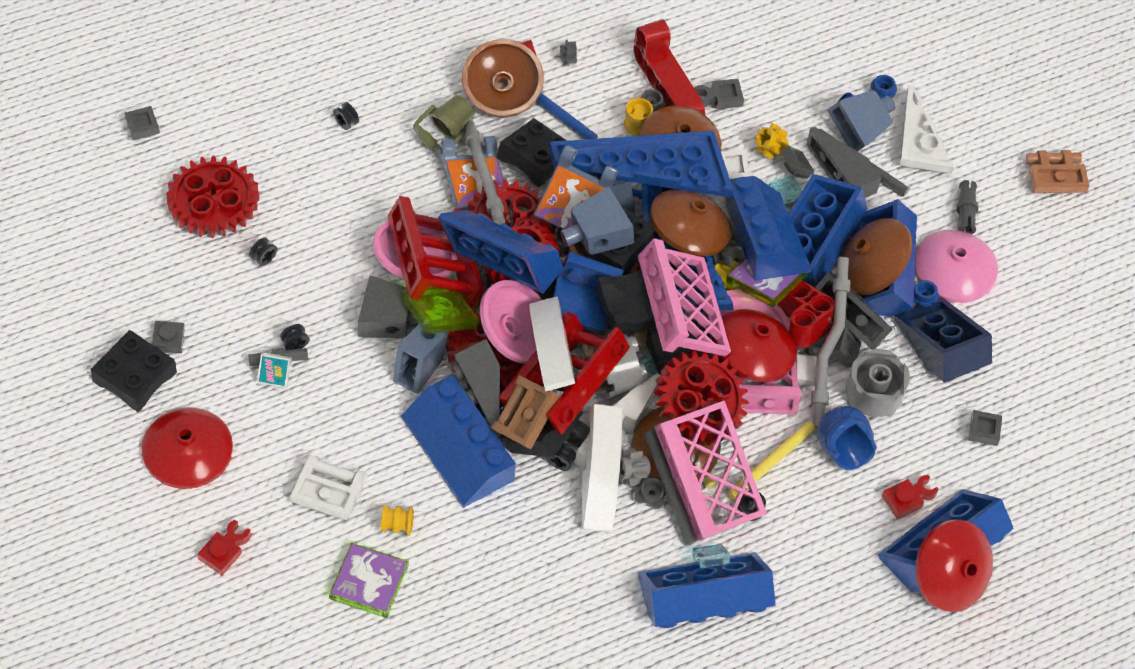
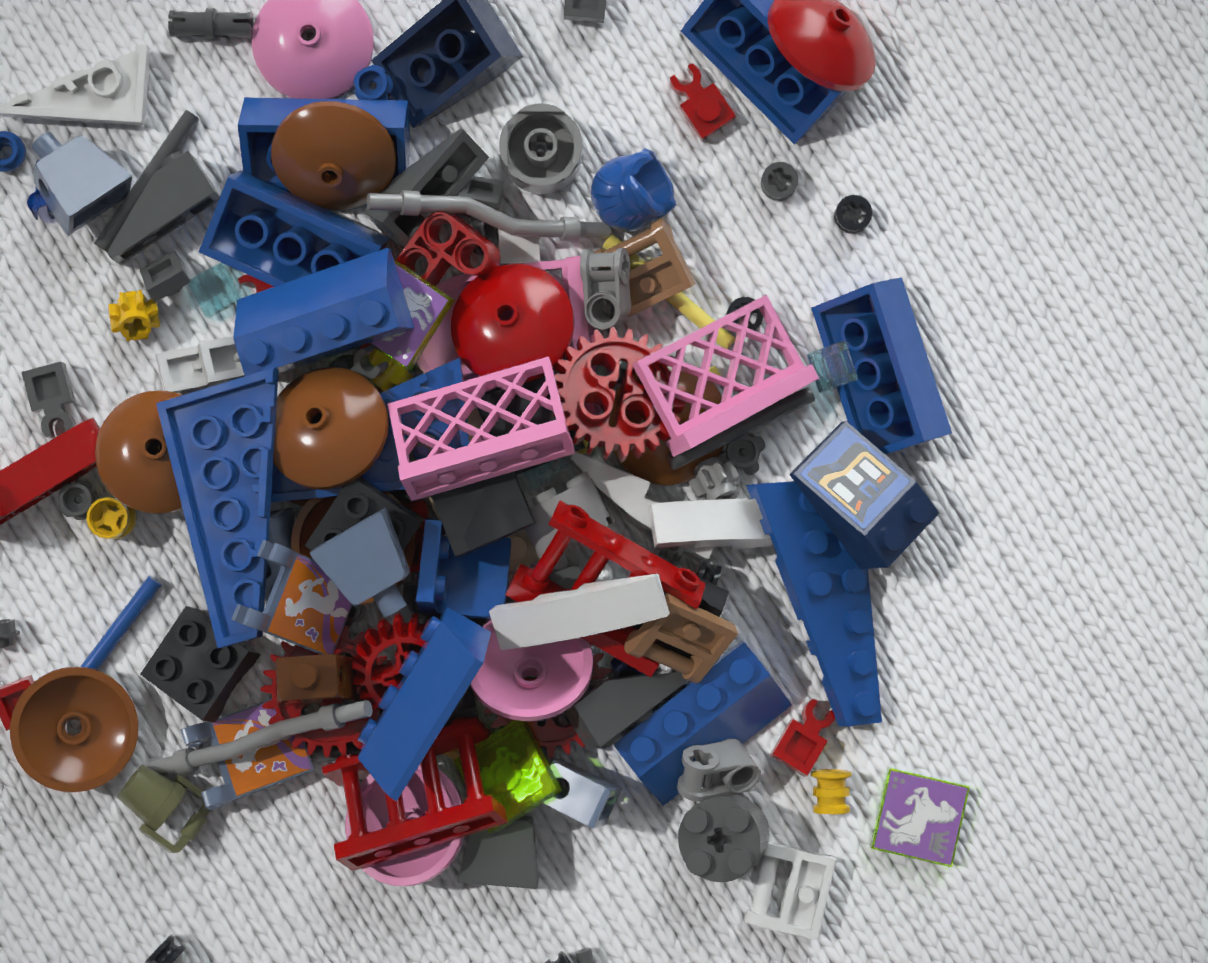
camera: 90 degrees left, 30 degrees up
(376, 439) = (706, 853): none -> dark grey brick
(424, 442) = (720, 768): none -> light grey piece
(435, 505) = (800, 743): none -> red plate
(521, 188) = (314, 679): none -> reddish brown torso
(567, 529) = (829, 598): none -> blue wing
(615, 552) = (864, 497): none -> slope
(774, 409) = (605, 283): none -> light grey piece
(781, 442) = (660, 276): none -> medium nougat plate
(827, 577) = (849, 226): none -> black bush
(856, 532) = (771, 190): none -> dark grey bush

